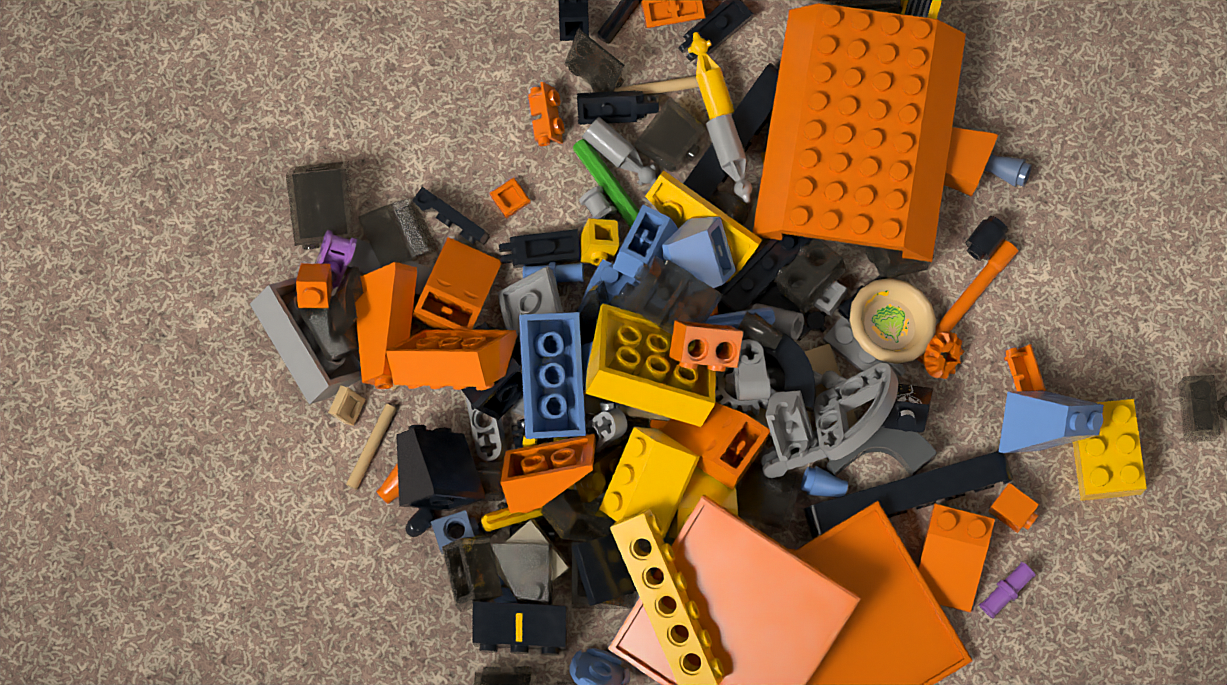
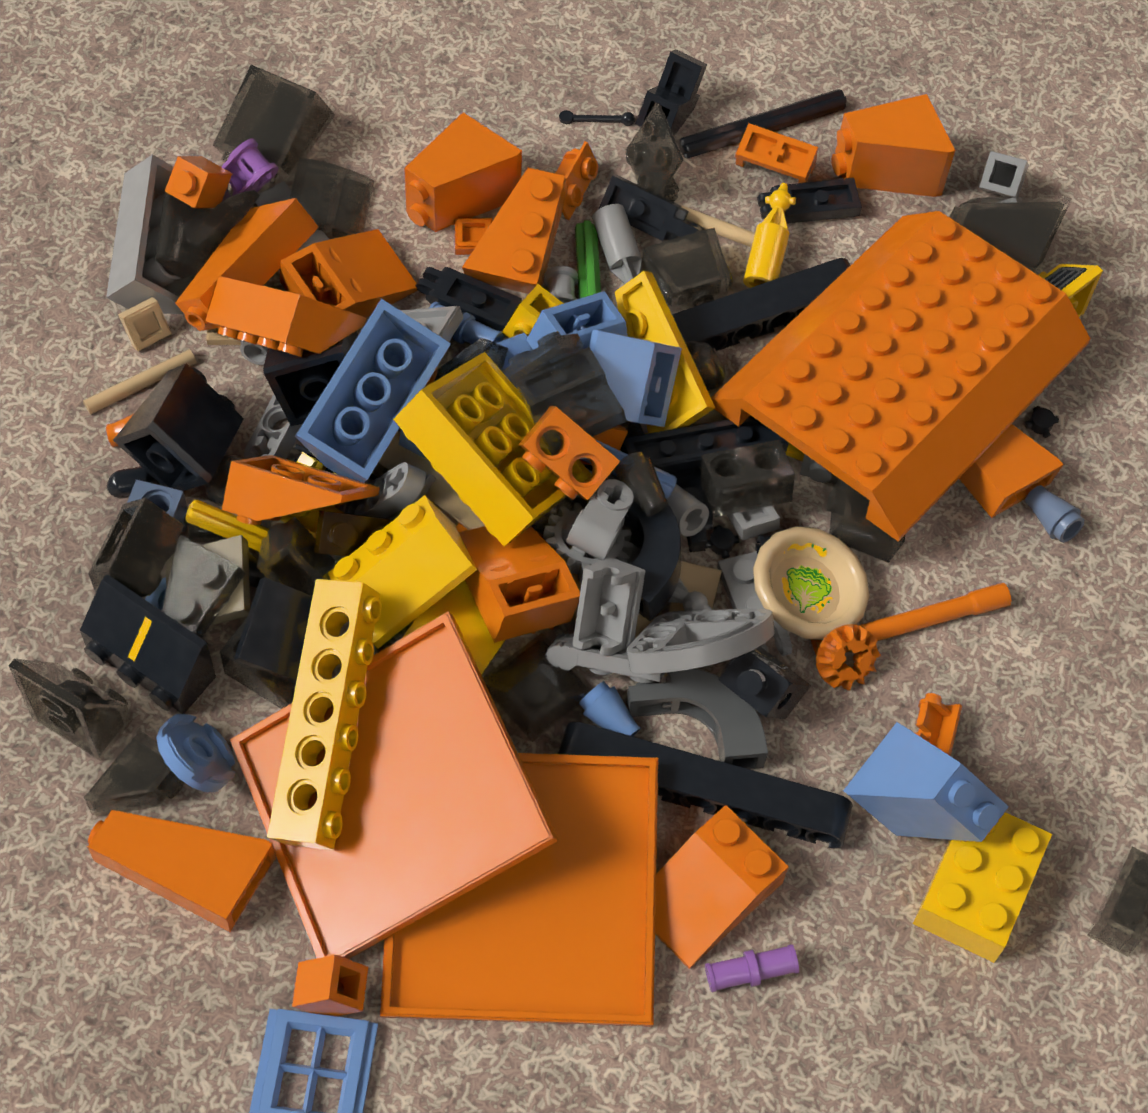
camera: 25 degrees right, 15 degrees down
(447, 215) = (395, 212): black hinge -> none
(478, 163) = (461, 175): none -> orange slope
(507, 61) = (567, 117): none -> black hinge
(550, 185) = (522, 235): none -> orange wedge
(730, 153) = (741, 307): light grey wheel -> none
(963, 104) = (1042, 421): none -> black piece
(986, 238) = (981, 567): black brick -> none
(1014, 508) = (822, 877): orange brick -> none

